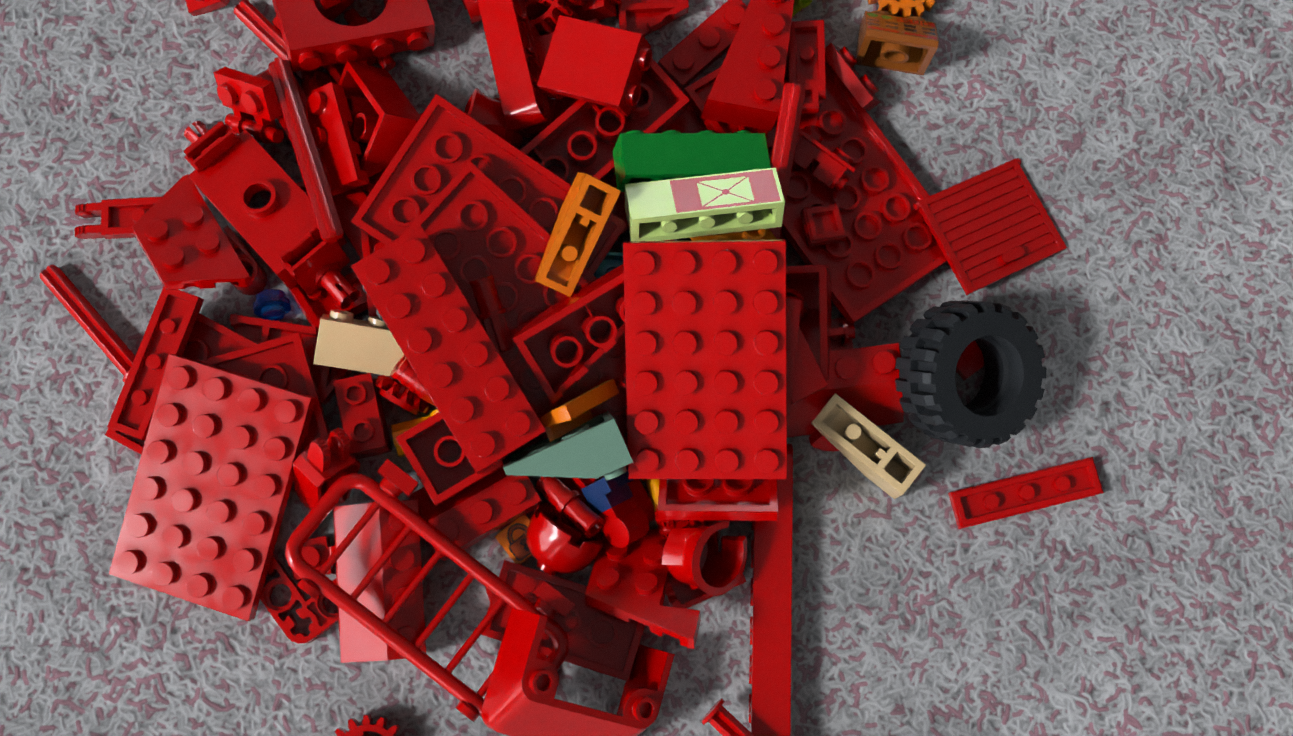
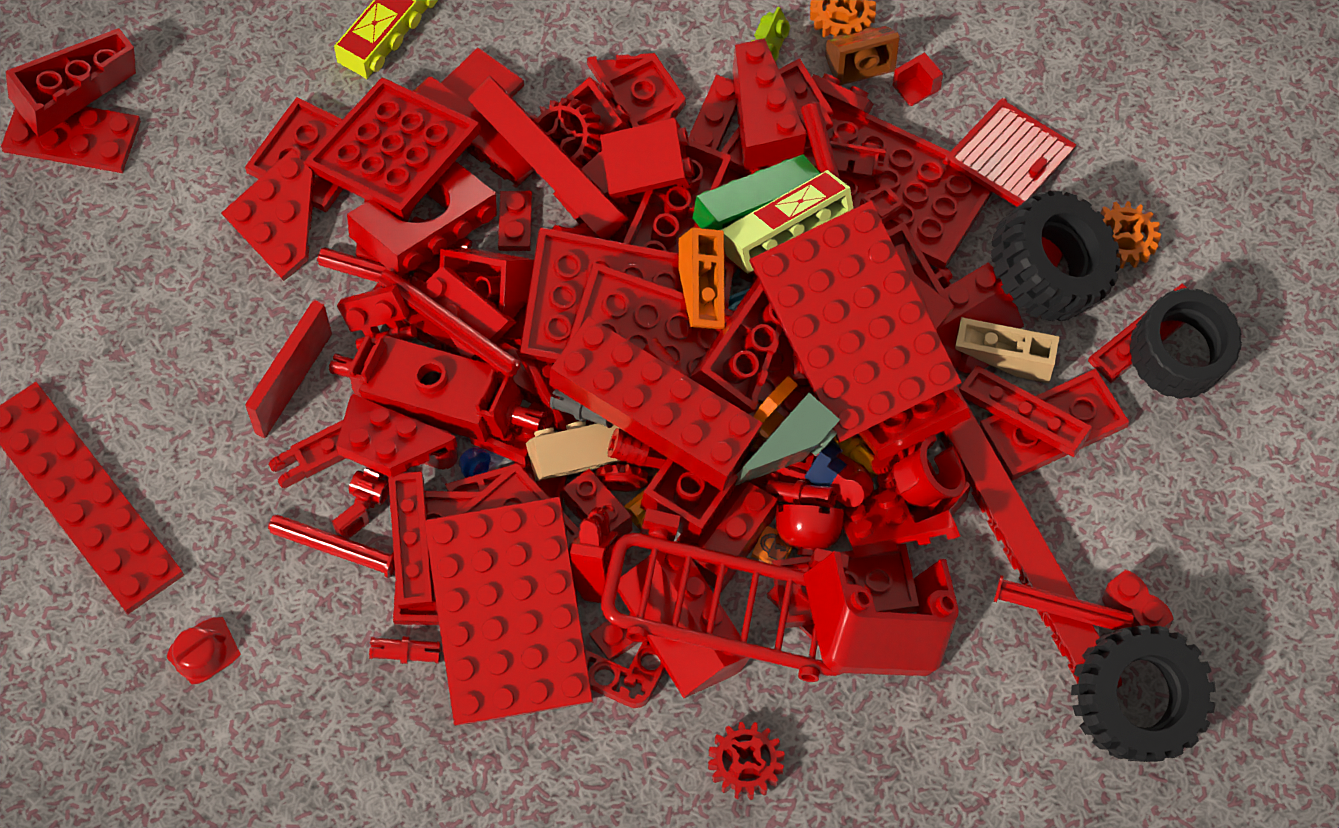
camera: 20 degrees left, 15 degrees down
(100, 469) = (404, 650): none -> red pin
(119, 308) = (351, 520): none -> red tile
(134, 118) = (289, 369): none -> red tile
(146, 283) = (369, 488): none -> red gear
(450, 59) = (515, 221): none -> red plate
(848, 525) = (1025, 411): none -> red plate
(873, 549) = (1082, 398): none -> red plate
(939, 97) = (917, 79): none -> red panel
(1066, 389) = (1127, 229): none -> orange gear
(1099, 545) = (1206, 315): none -> black tyre

